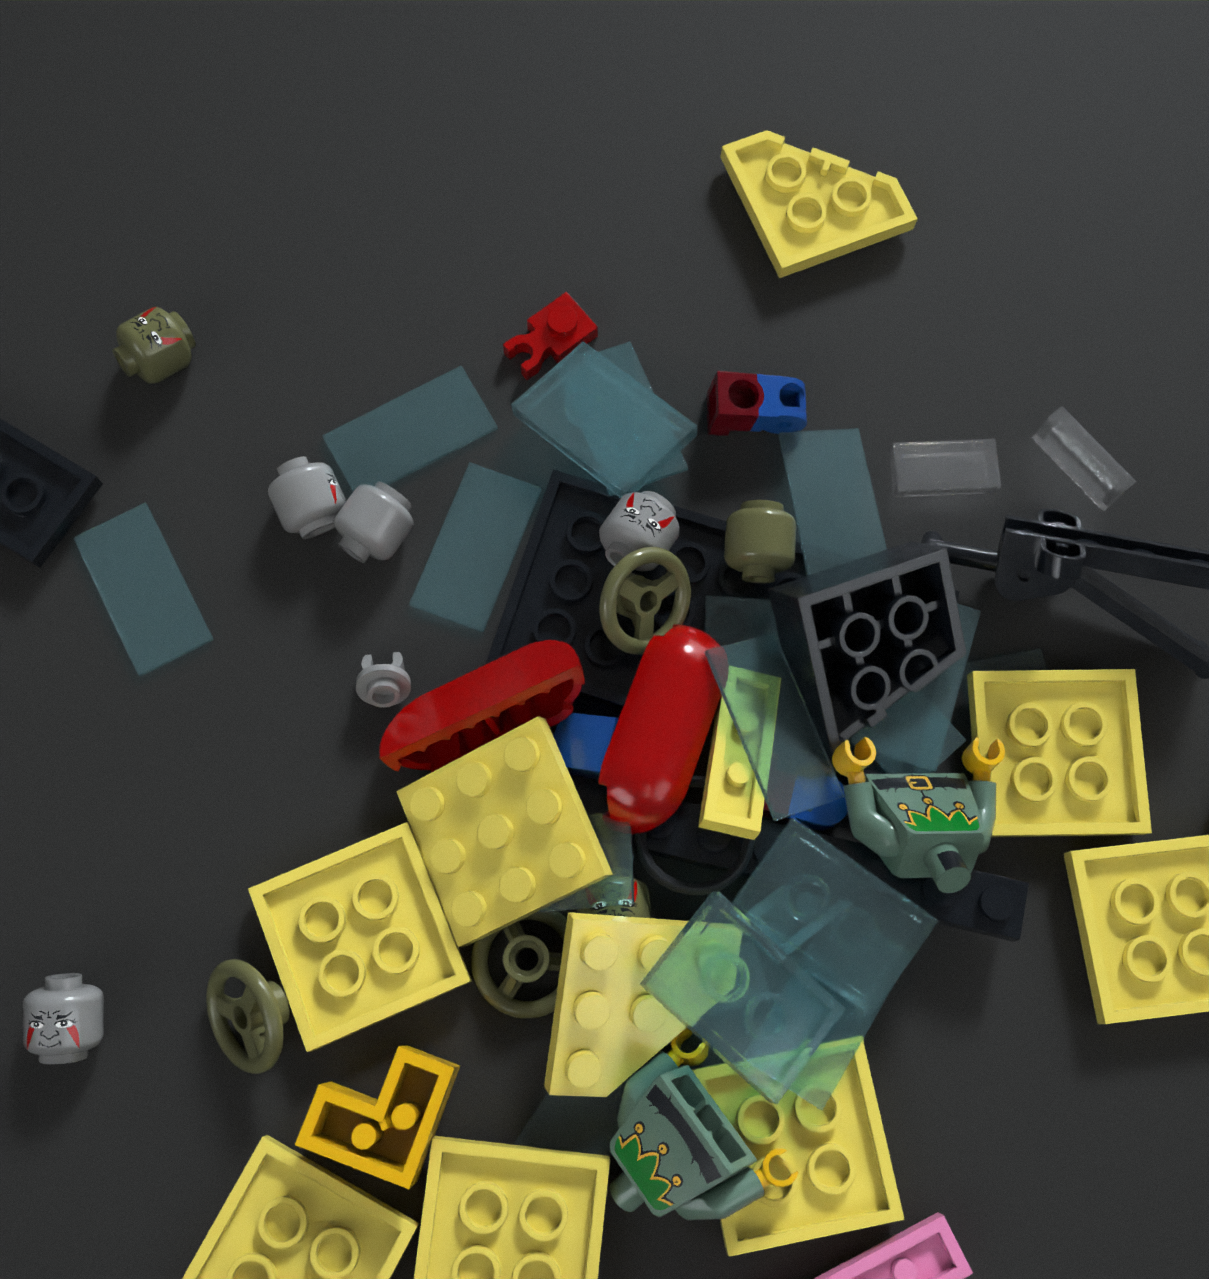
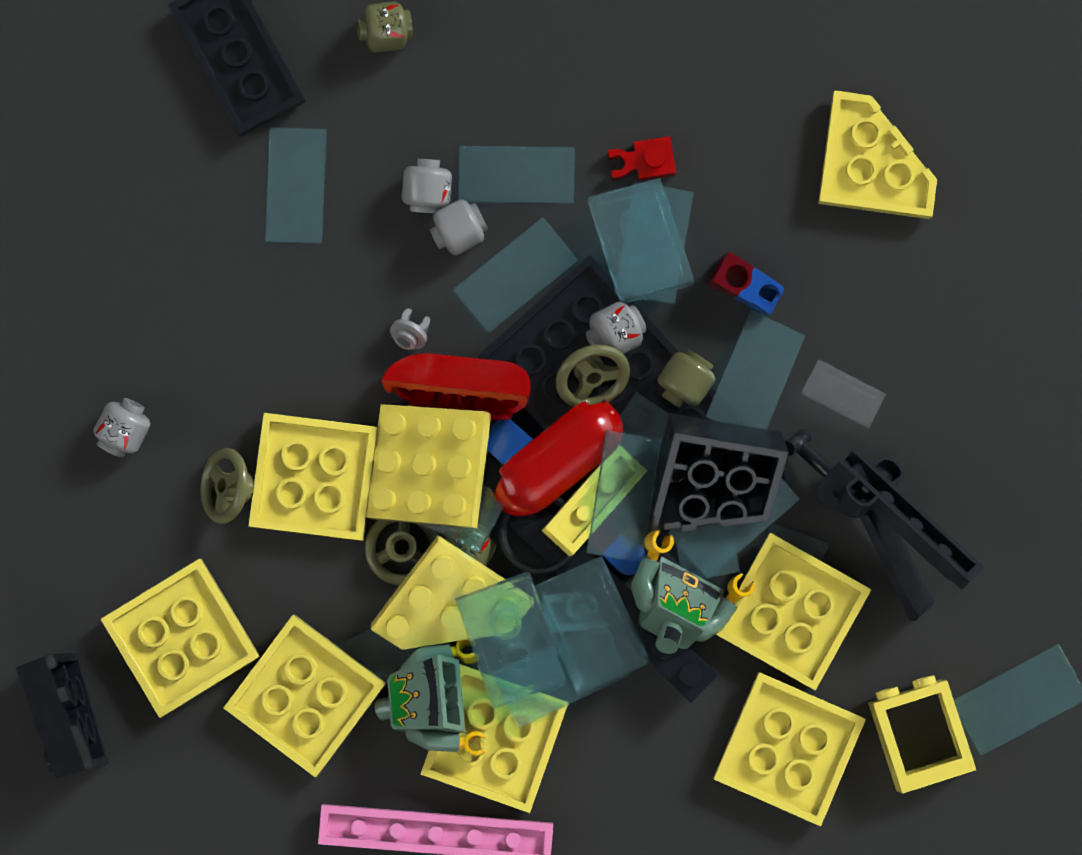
camera: 35 degrees right, 10 degrees up
(384, 1134) = (269, 597): yellow brick -> none
(1083, 458) = (932, 440): clear tile -> none

